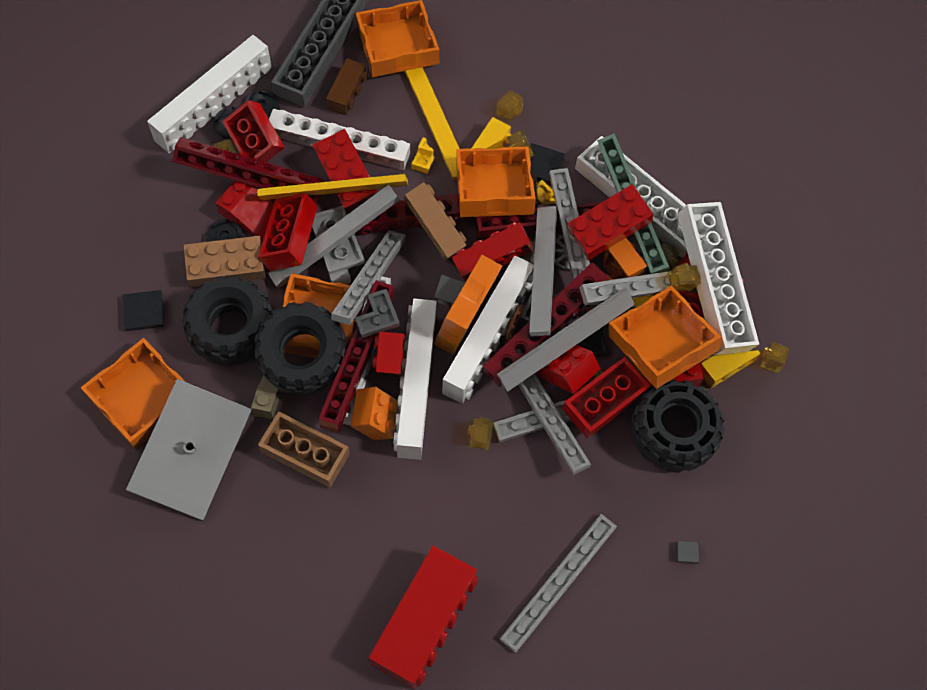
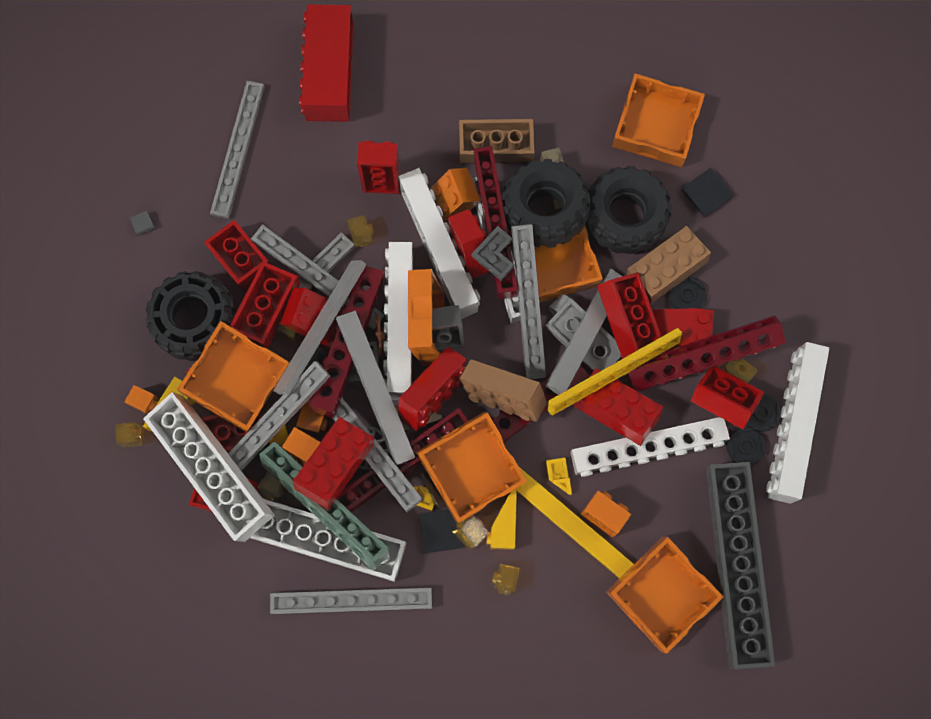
camera: 155 degrees right, 10 degrees up
(185, 477) = (586, 96): light grey piece -> none
(346, 87) = (678, 510): reddish brown brick -> none
(406, 105) = (606, 513): none -> orange brick
(434, 462) = (379, 167): none -> red brick
(611, 466) = (236, 254): none -> red brick
(643, 150) = (350, 601): none -> light grey plate
(684, 277) = (238, 446): clear yellow brick -> none
(752, 378) = (141, 400): none -> orange brick

